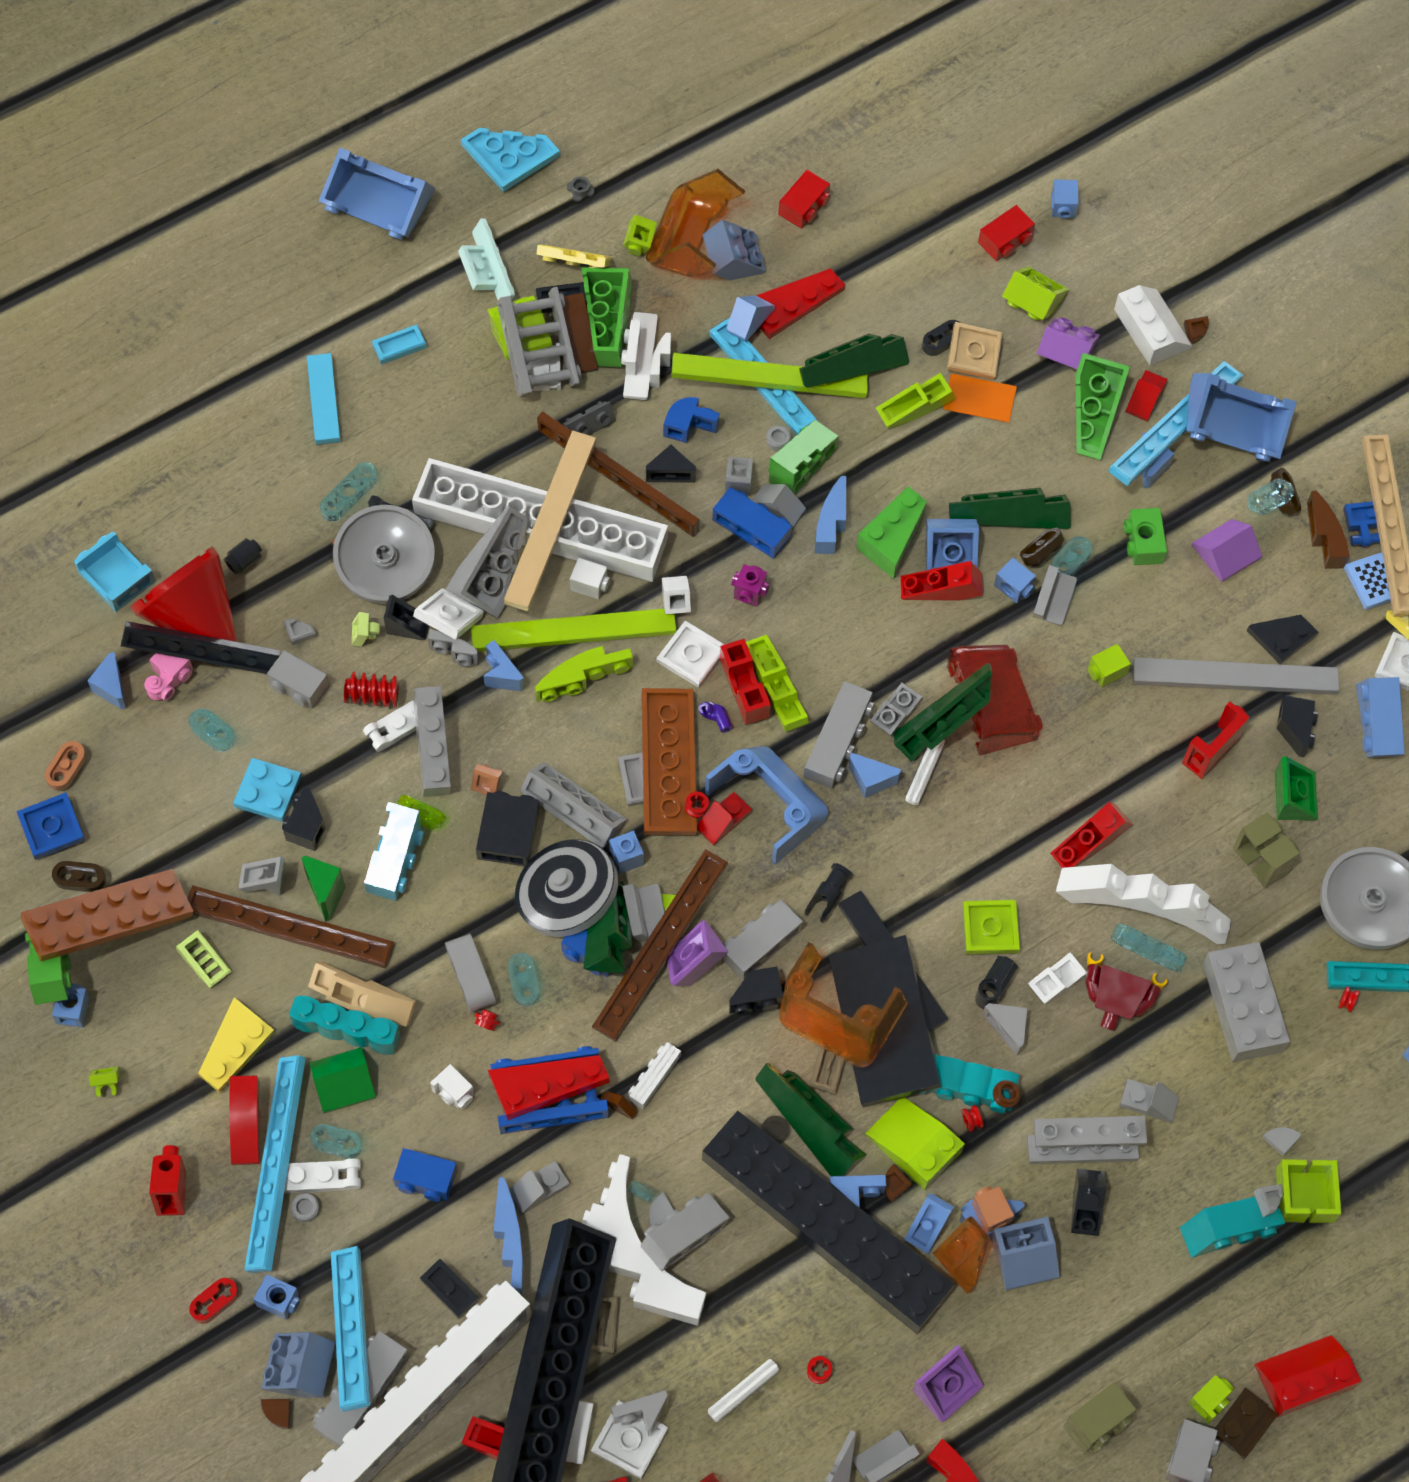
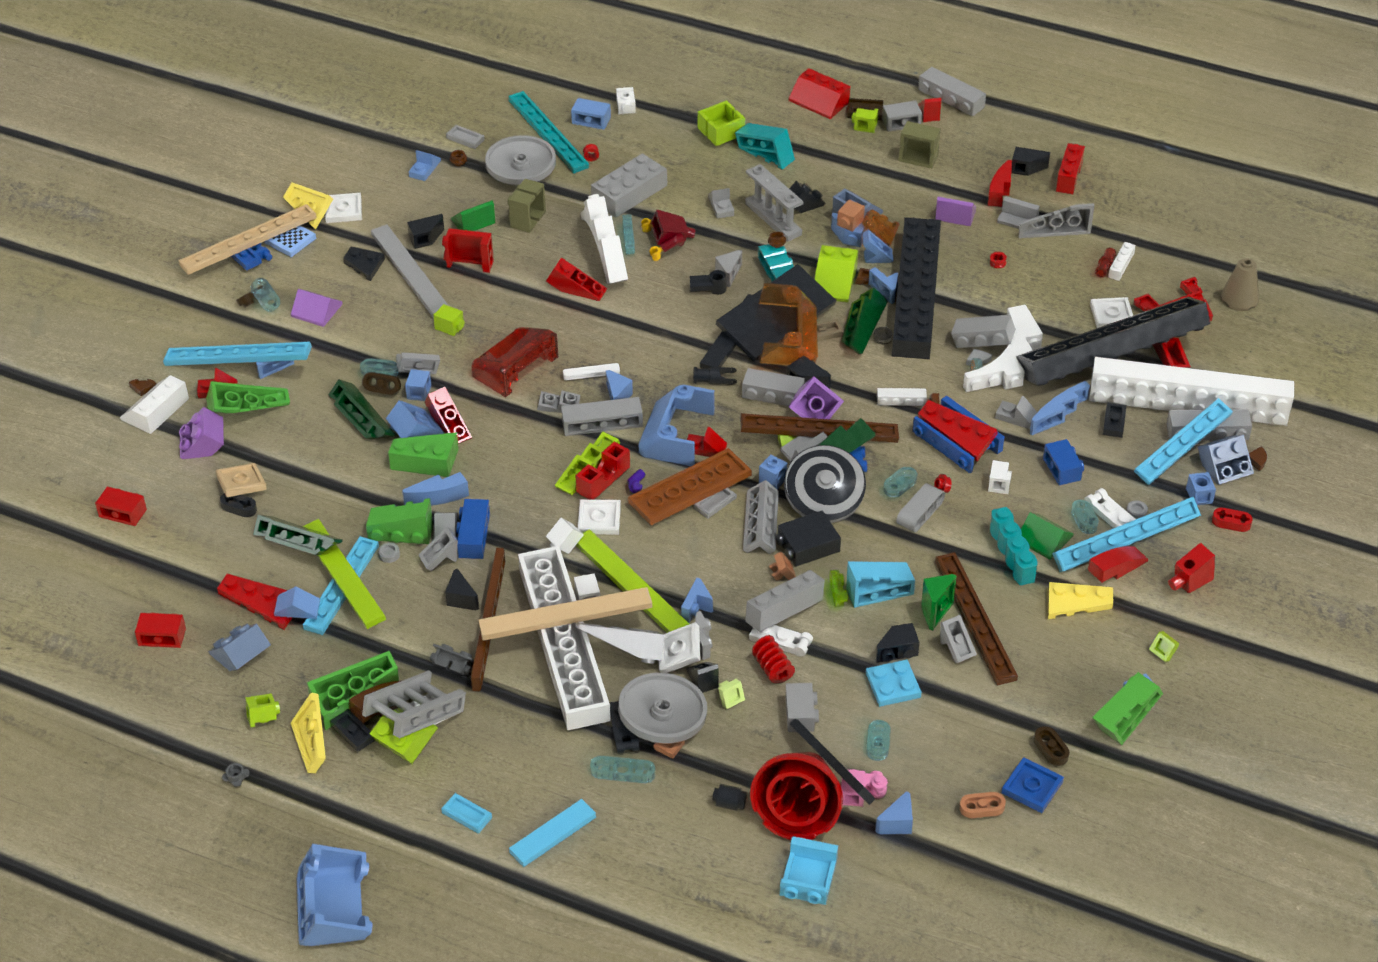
camera: 120 degrees left, 20 degrees down
(106, 914) = (1069, 690): dark orange plate -> none
(211, 954) = (1039, 650): yellowish green slope -> none
(299, 631) = (760, 735): light grey tile -> none
(361, 995) = (990, 547): tan slope -> none
(484, 263) = (353, 790): light aqua bracket -> none
(509, 155) = (231, 837): medium azure plate -> none
(572, 674) = (665, 562): lime slope -> none
(639, 355) = (399, 649): white bracket -> none
(648, 1407) = (1095, 304): light grey slope -> none
(660, 358) = (365, 644): white slope -> none
(687, 219) = (230, 694): clear orange windscreen -> none
(687, 414) = (412, 605): blue brick -> none
(696, 813) = (712, 452): red bush -> none
(743, 1390) = (1041, 282): white axle -> none
(750, 584) = (525, 505): magenta brick -> none
(916, 401) = (306, 491): lime slope -> none
(945, 714) = (552, 357): dark green wedge -> none
(972, 1118) = (799, 258): red bush -> none
(981, 397) = (276, 468): orange sticker -> none
(990, 927) = (673, 300): lime plate -> none
(1034, 293) = (167, 469): lime slope -> none
(1057, 979) = (677, 264): white slope -> none
(1064, 198) = (68, 488): medium blue brick -> none
(1147, 523) = (336, 340): bright green brick -> none
(1238, 416) = (209, 325): medium blue windscreen -> none
(1269, 1198) = (742, 129): light grey tile -> none
(1281, 1139) = (696, 149): light grey tile -> none
(1327, 532) = (273, 265): reddish brown slope -> none
(1381, 717) = (392, 198): medium blue wedge -> none

